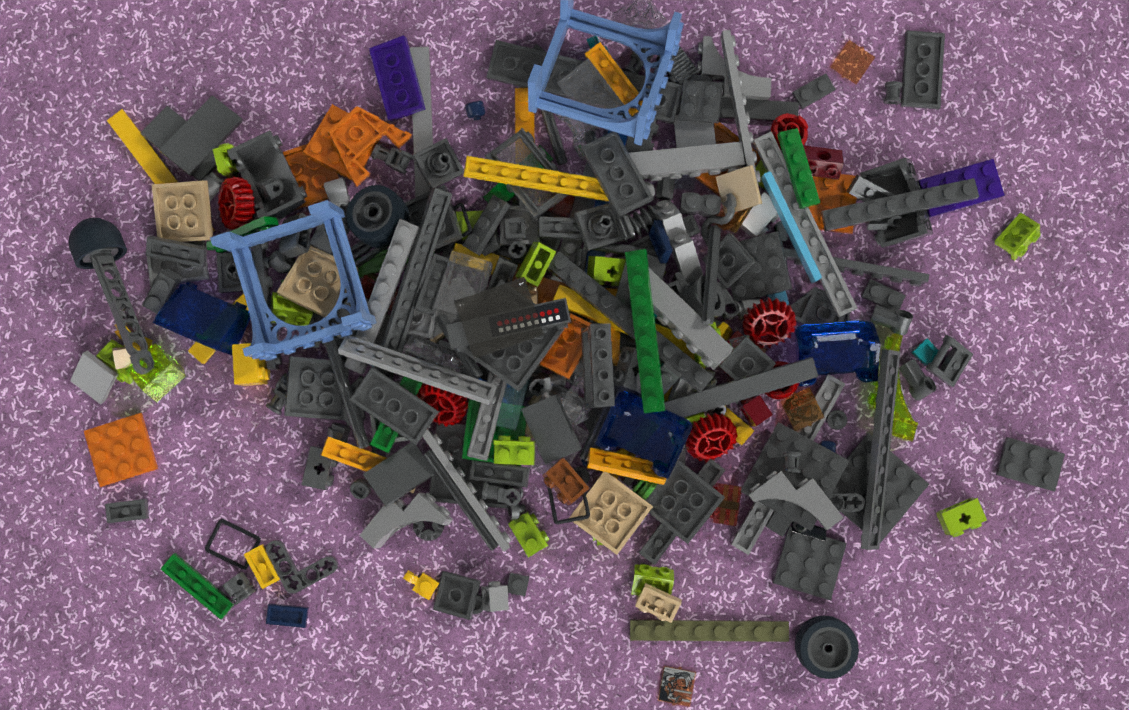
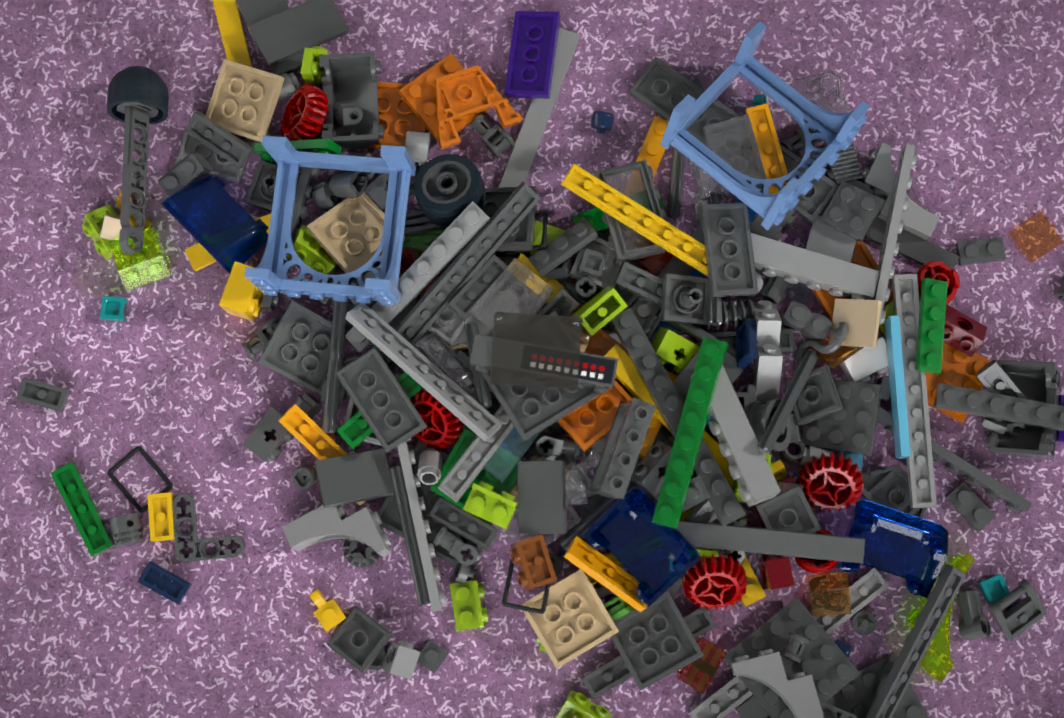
camera: 20 degrees right, 5 degrees down
(94, 377) = (72, 236): light grey tile -> none
(120, 449) = (65, 326): orange plate -> none
(152, 420) = (113, 308): none -> teal plate
(438, 164) = (538, 161): dark grey plate -> none
(454, 441) = (430, 467): none -> light grey brick
(897, 321) = (975, 541): dark grey piece -> none

